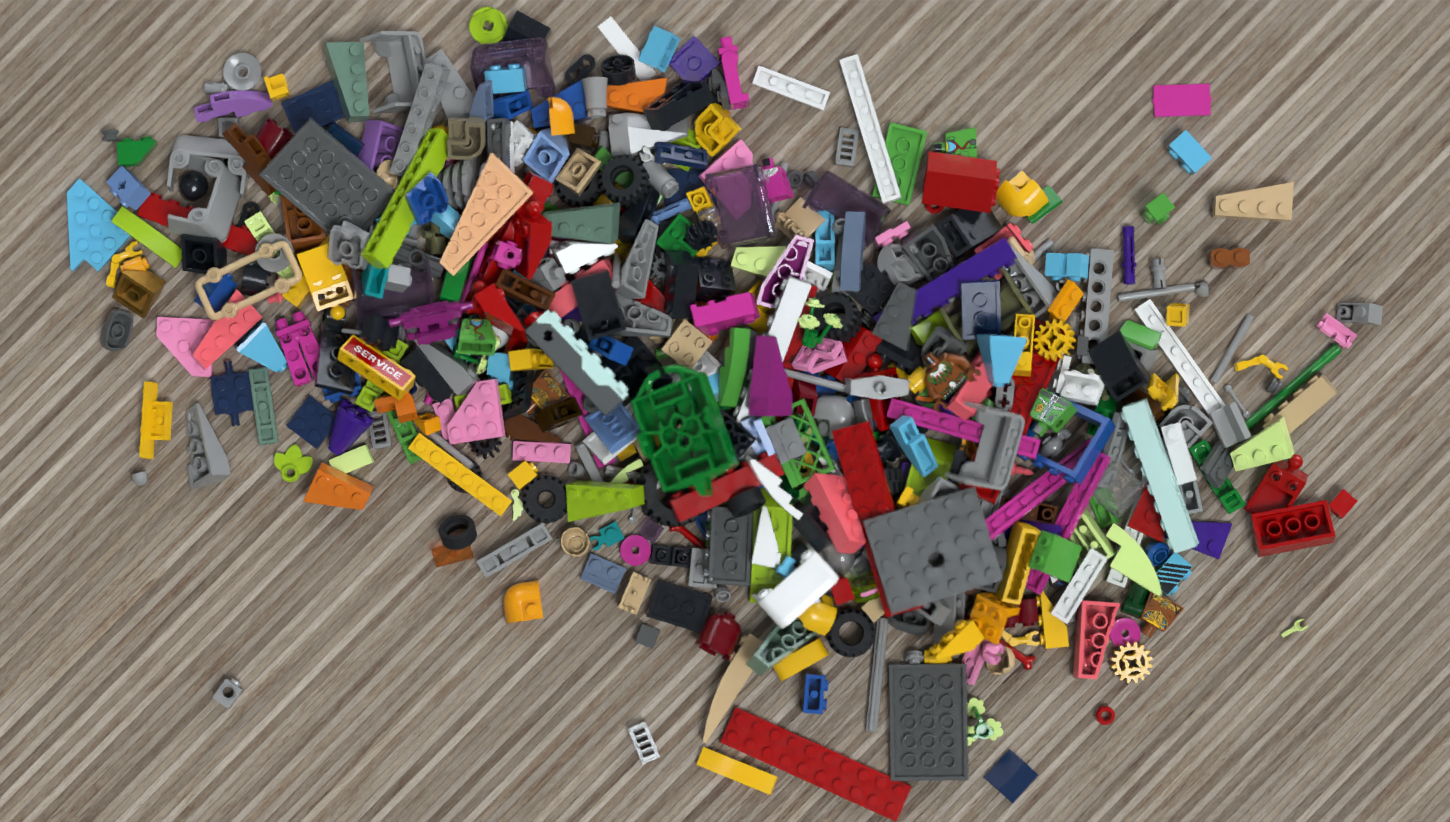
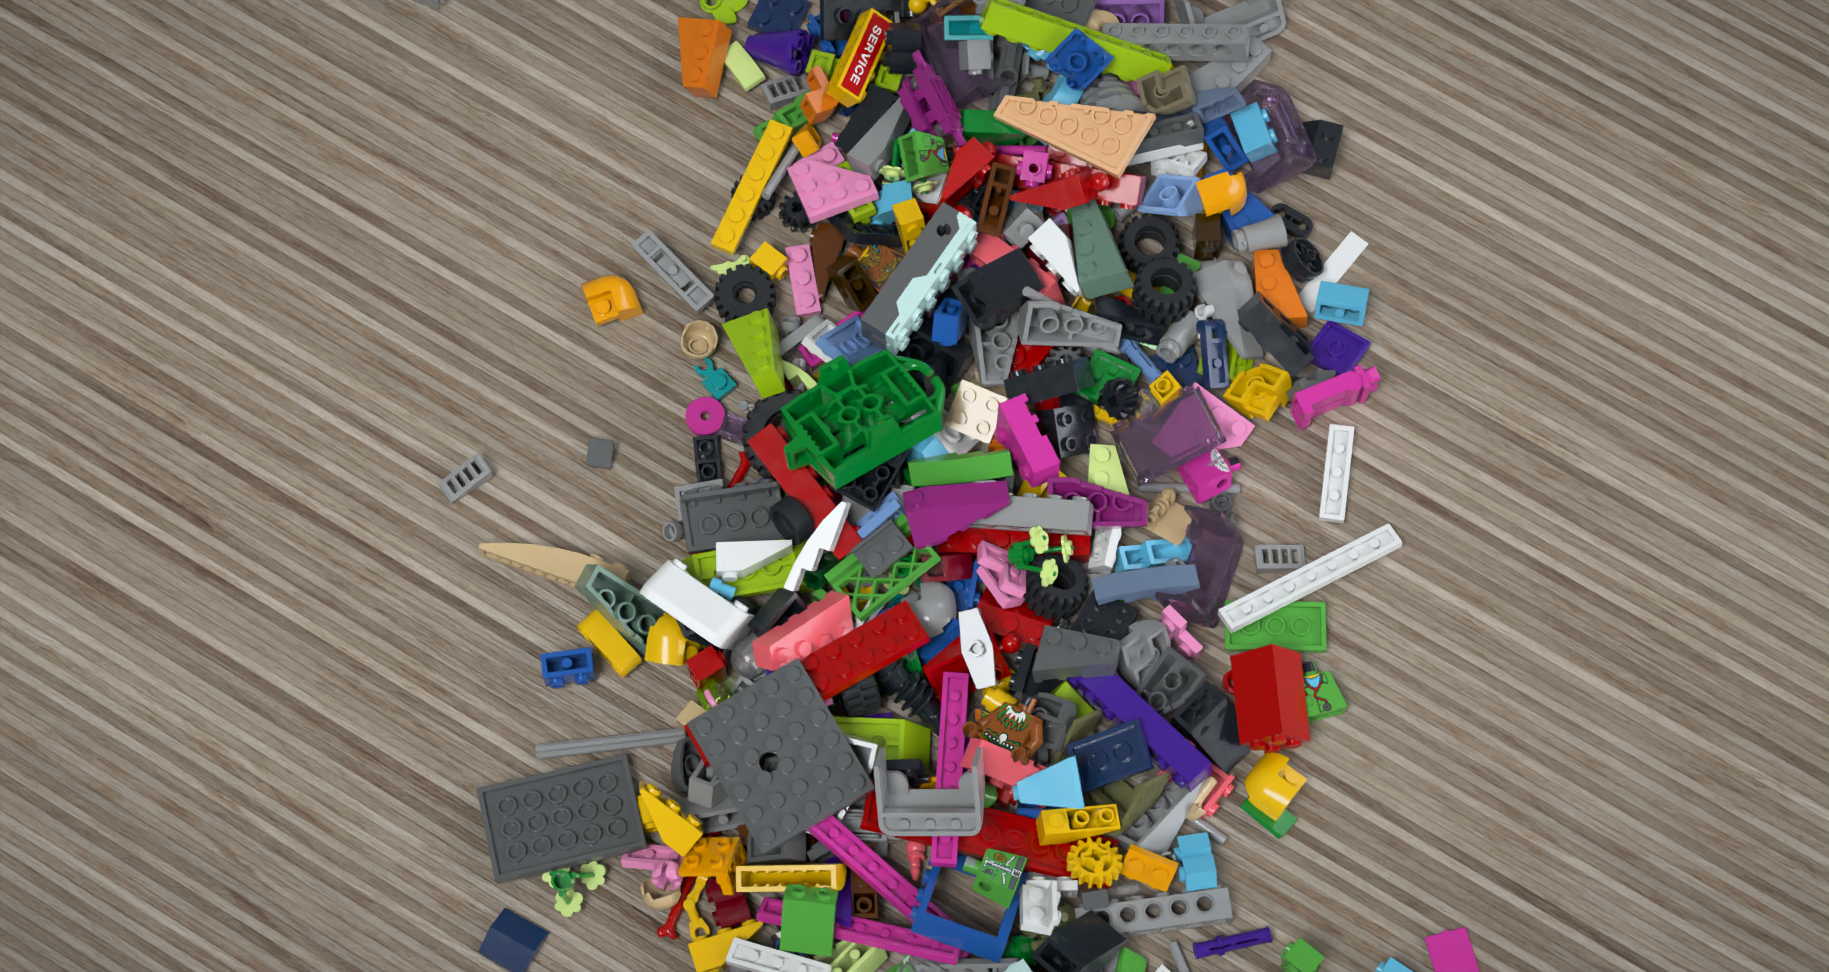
camera: 80 degrees right, 15 degrees down
(445, 556) = (654, 205): clear orange slope -> none
(459, 541) = (673, 207): black tyre -> none
(490, 15) = (1317, 91): lime plate -> none
(578, 171) = (1159, 236): tan slope -> none
(603, 573) = (667, 385): sand blue plate -> none
(634, 593) = (650, 425): tan hinge -> none
(679, 606) = (645, 483): black plate -> none
(719, 635) = (619, 535): dark red cylinder -> none
(737, 770) = (451, 596): yellow slope -> none
(815, 380) = (969, 568): light grey bar -> none
(815, 764) = (479, 694): red plate -> none
(863, 410) = (940, 640): dark grey hinge -> none
(866, 640) = (650, 677): black tyre -> none
(907, 498) = (843, 715): yellow bracket -> none
(914, 445) = (913, 711): medium azure slope -> none
(914, 657) = (639, 776): light grey plate -> none
(1009, 396) = (1007, 819): light grey beam -> none
(1054, 445) = (956, 898): light grey piece -> none

